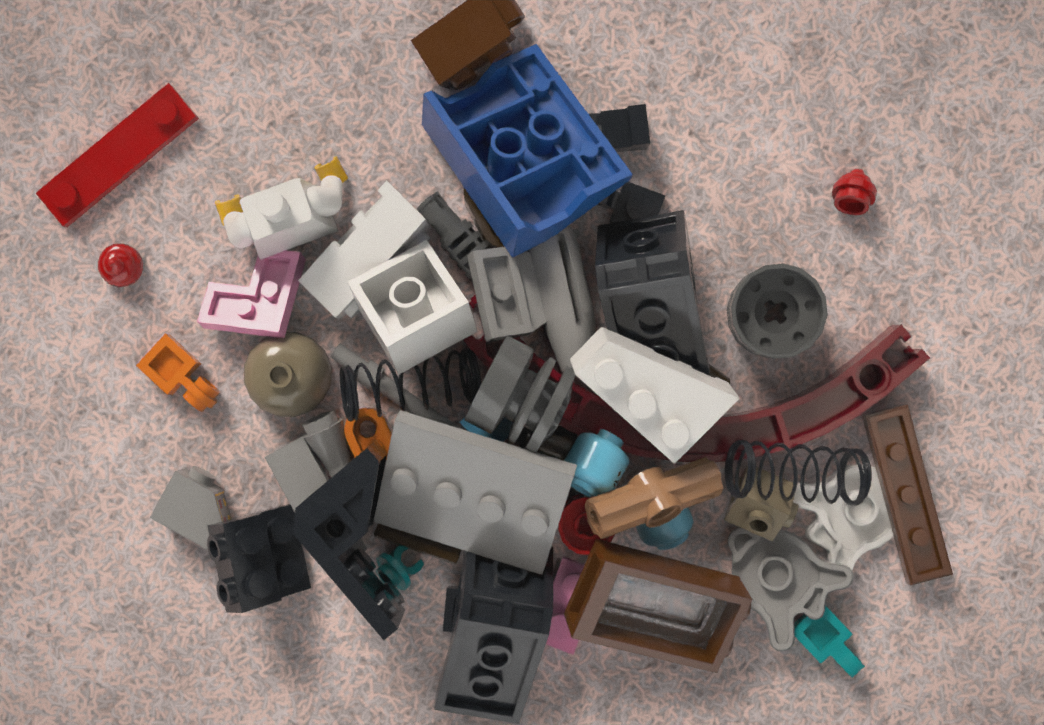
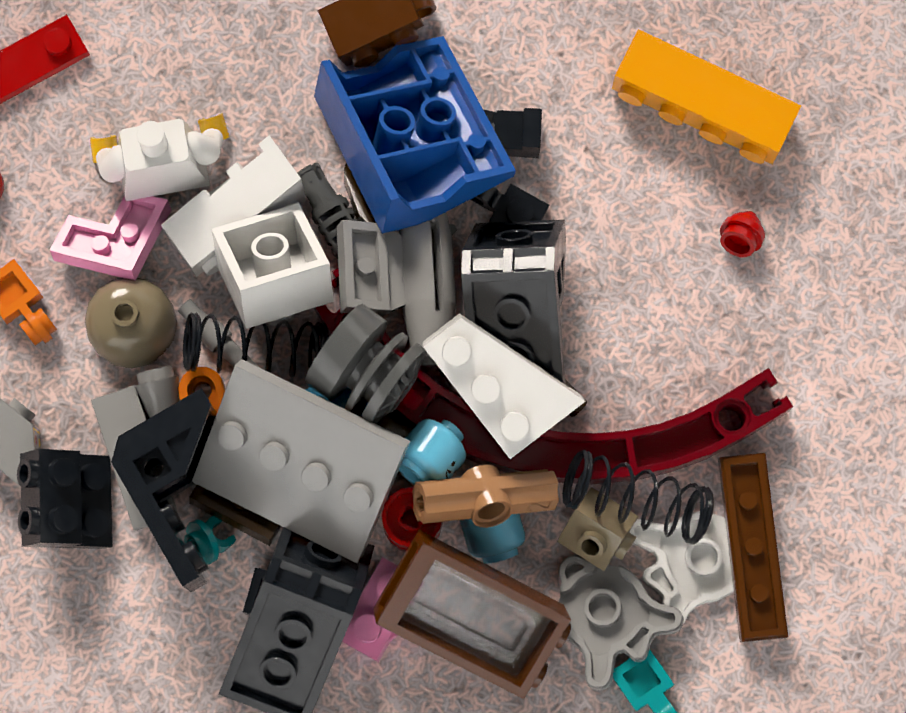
camera: 10 degrees right, 10 degrees down
(802, 65) = (705, 98): none -> light orange brick
(802, 314) = (646, 308): dark grey wheel -> none

